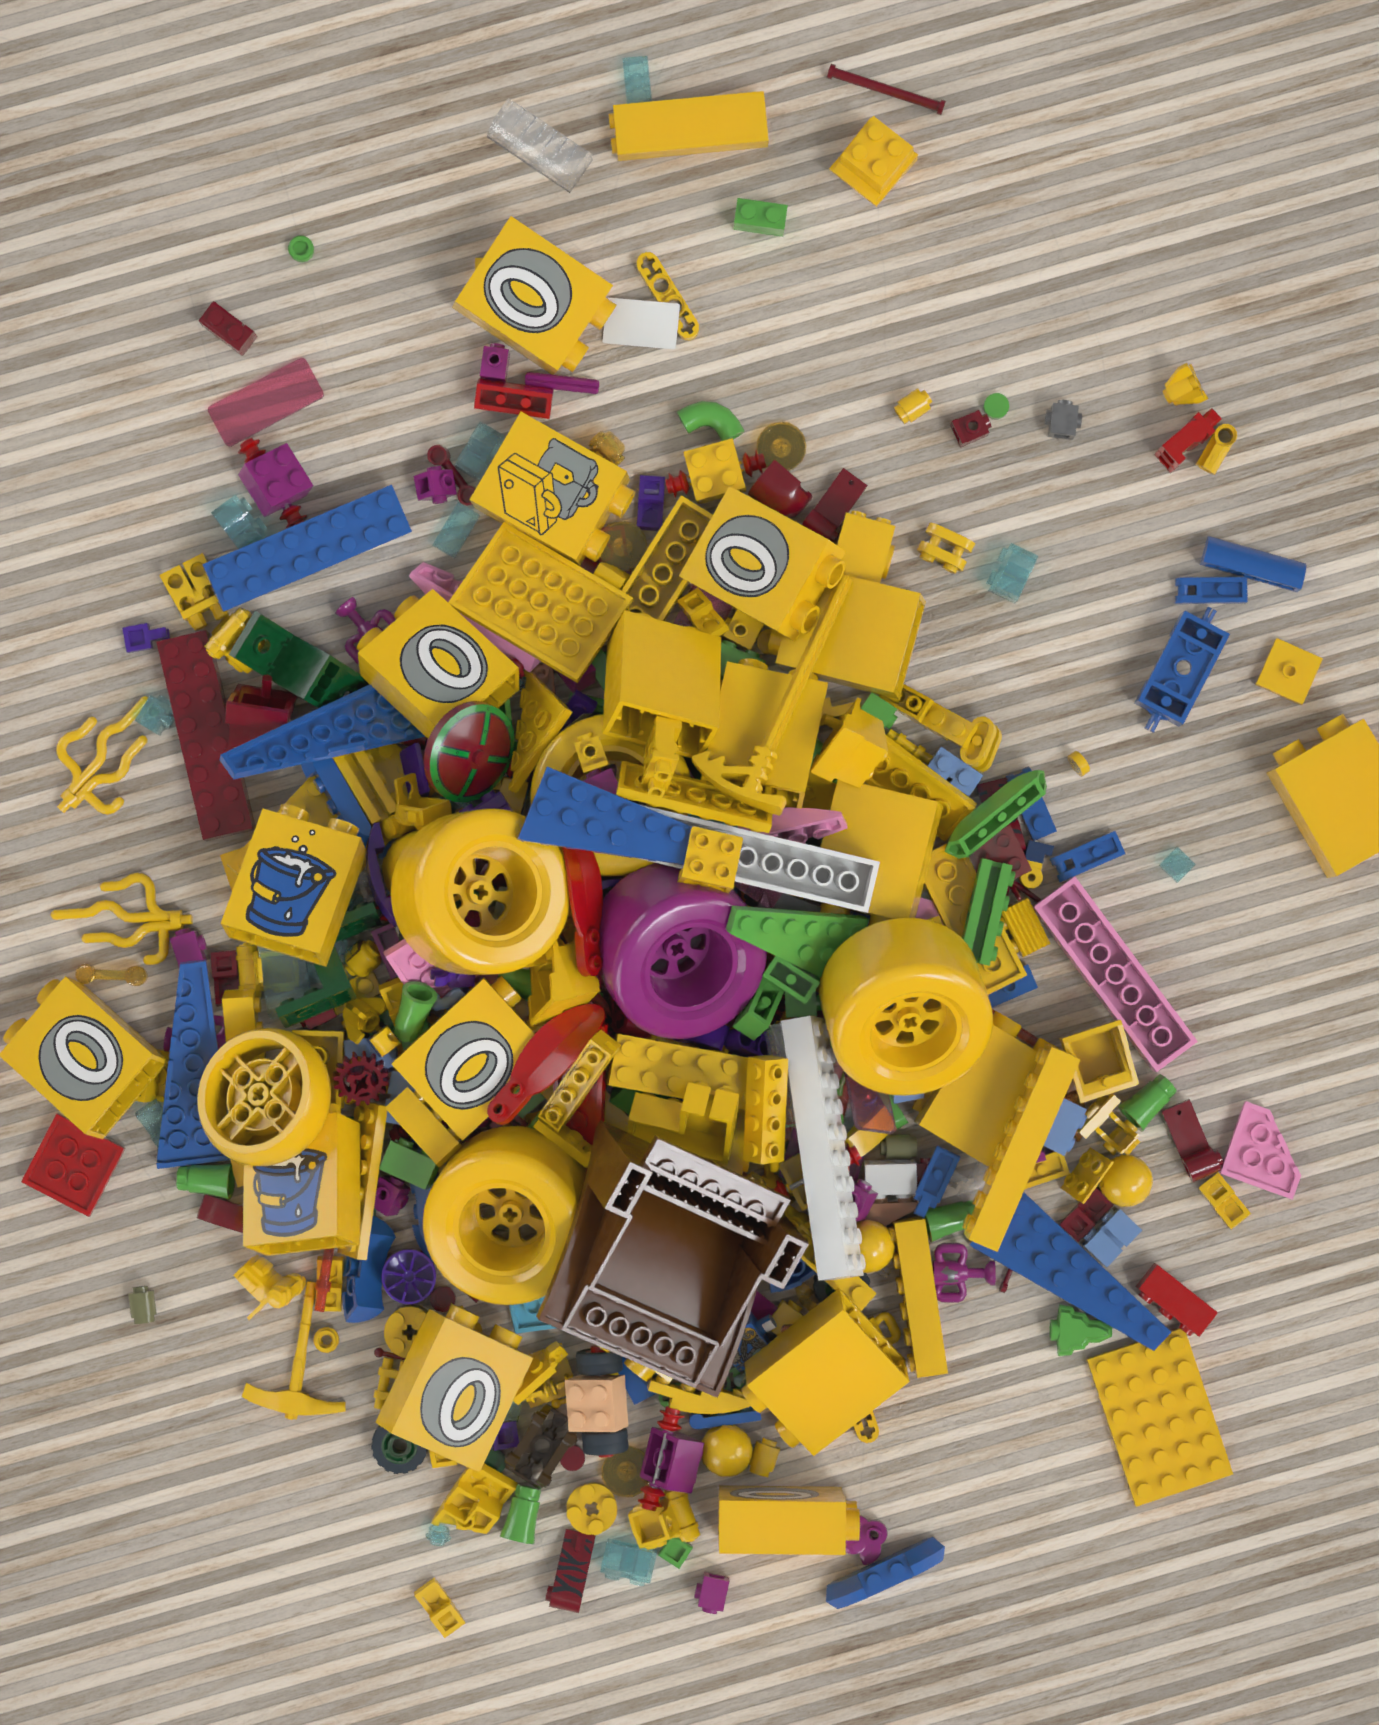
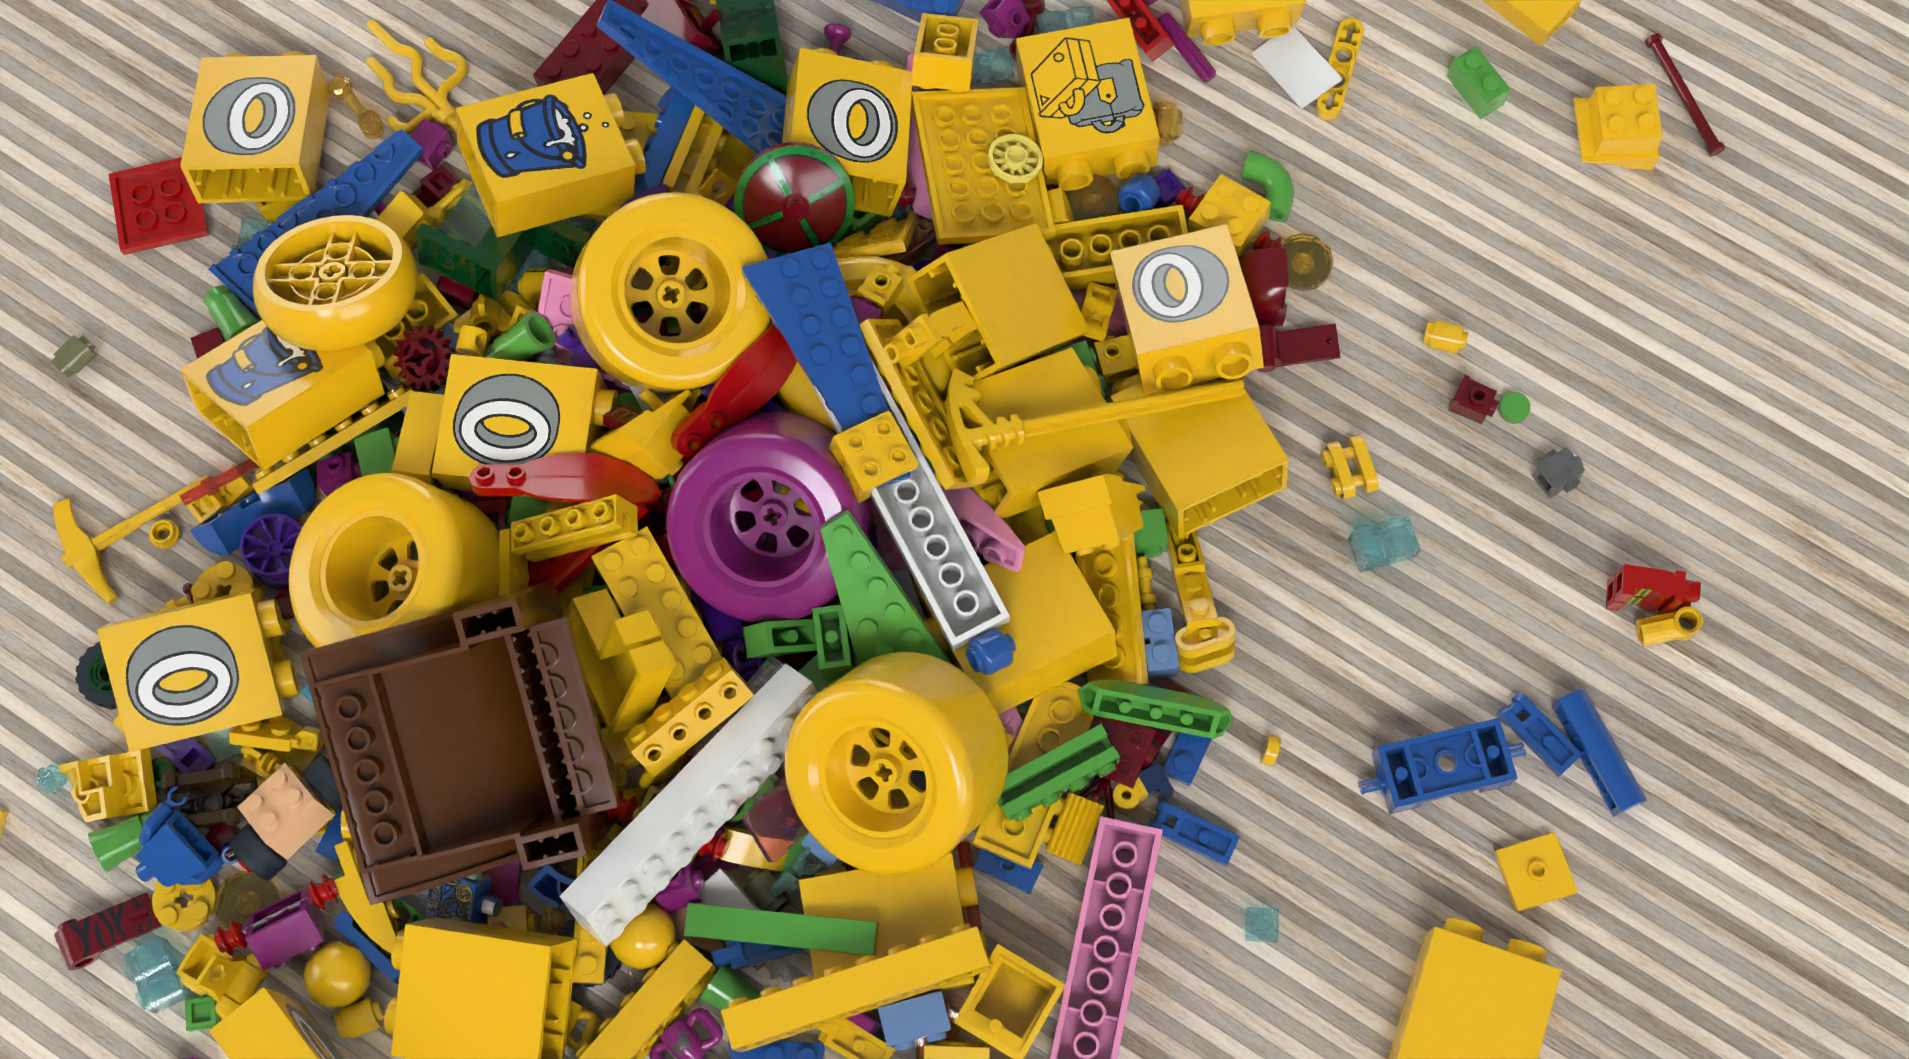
camera: 50 degrees right, 15 degrees down
(267, 1285) = (173, 439): yellow piece -> none
(436, 554) = (945, 52): none -> yellow brick
(529, 987) = (620, 416): none -> dark red tile
(556, 577) = (1015, 158): none -> light yellow wheel
(564, 1489) = (176, 850): none -> blue torso
(646, 515) = (1138, 194): none -> blue head
(866, 546) = (1286, 391): yellow brick -> none
(888, 890) = (990, 651): none -> blue head
(907, 1127) = (790, 877): none -> clear light blue plate
(940, 1160) = (781, 929): none -> bright green tile
(1184, 387) = (1692, 549): yellow brick -> none

